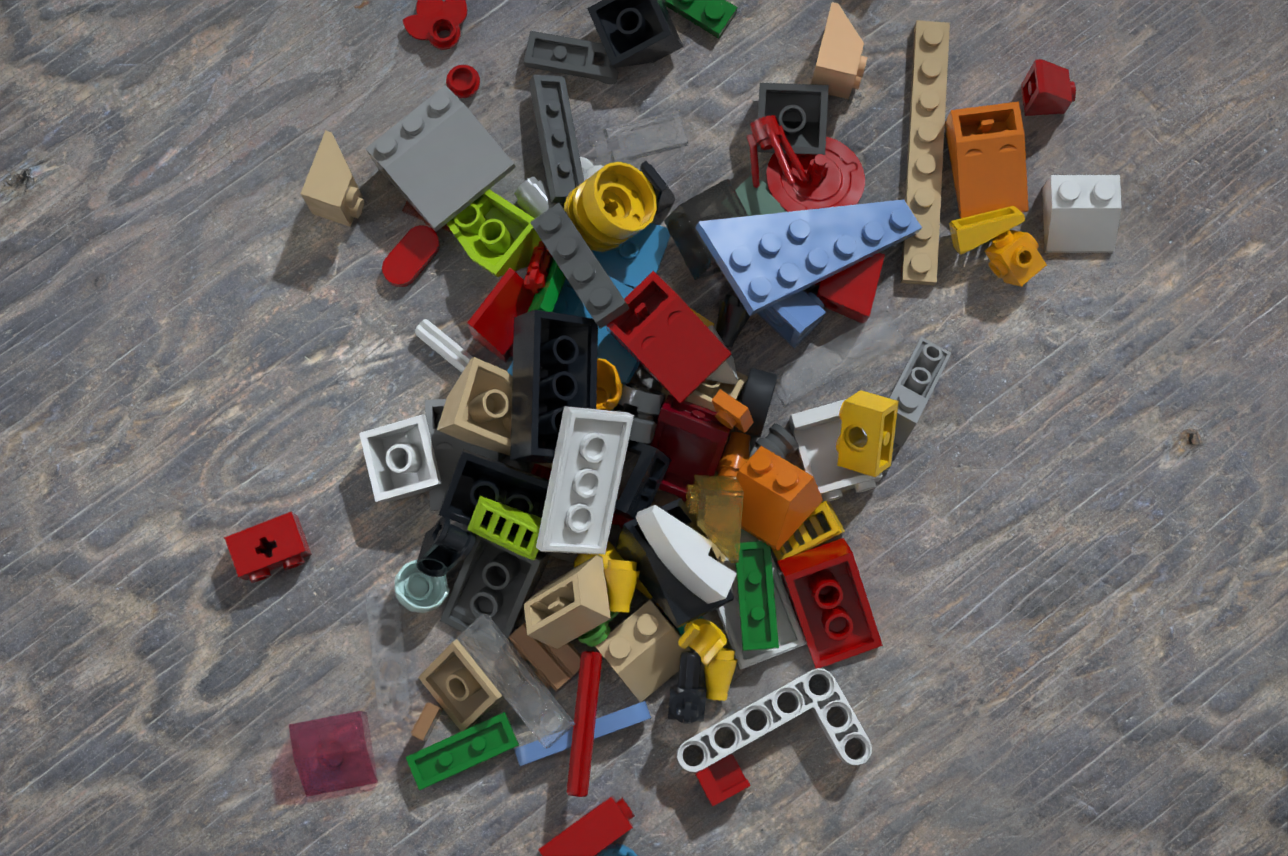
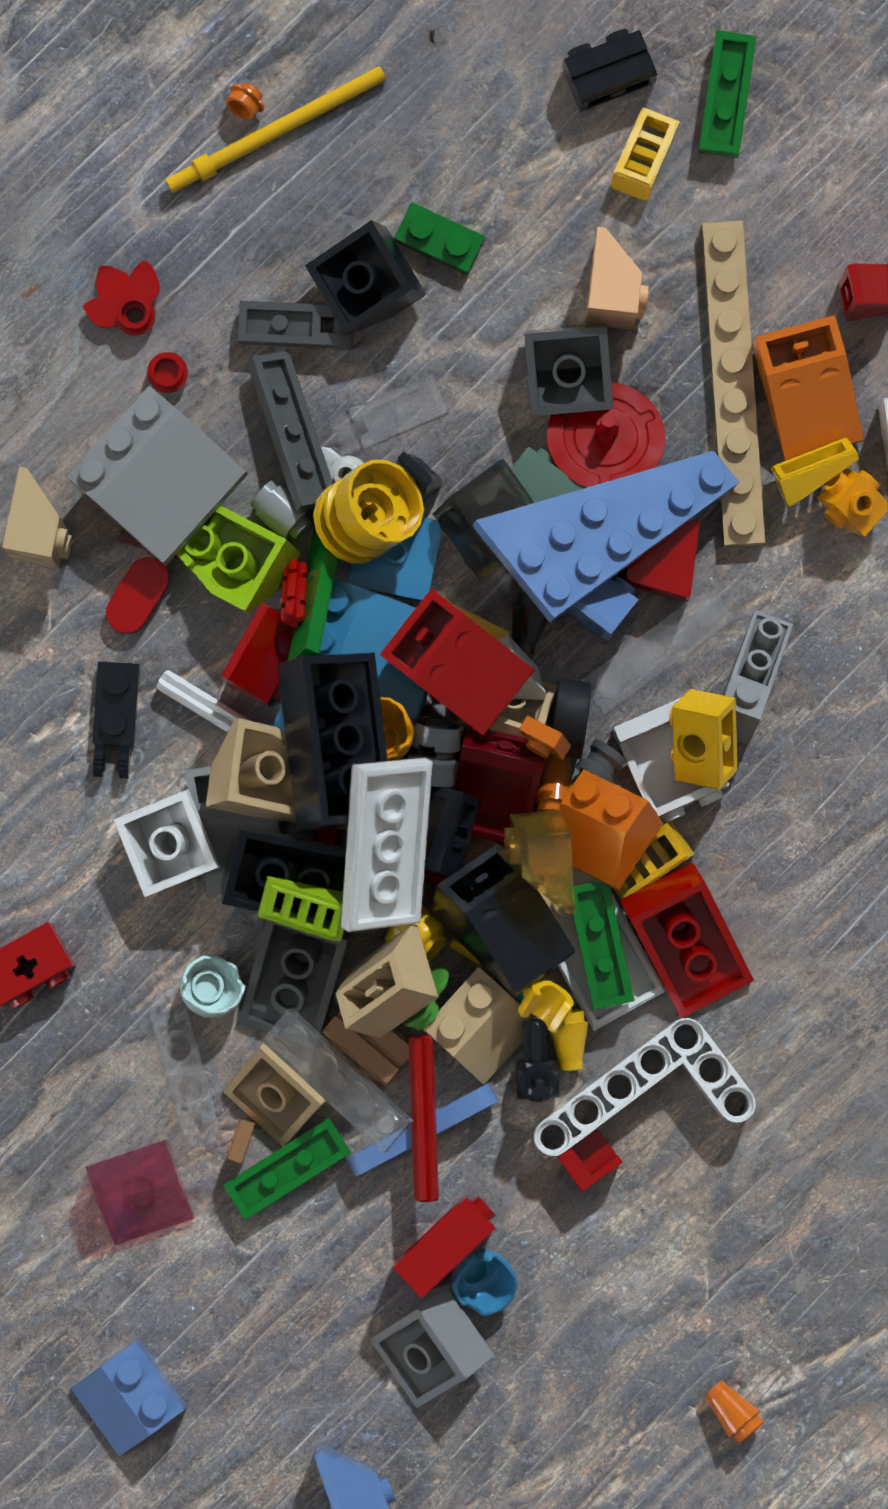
camera: 10 degrees left, 5 degrees up
(377, 350) = (115, 714): none -> black hinge
(444, 548) = (233, 940): black piece -> none
(580, 265) = (343, 590): dark grey plate -> none
(620, 583) = (443, 955): yellow cone -> none
(686, 554) = (514, 911): white slope -> none
(770, 135) = (545, 397): red plant -> none

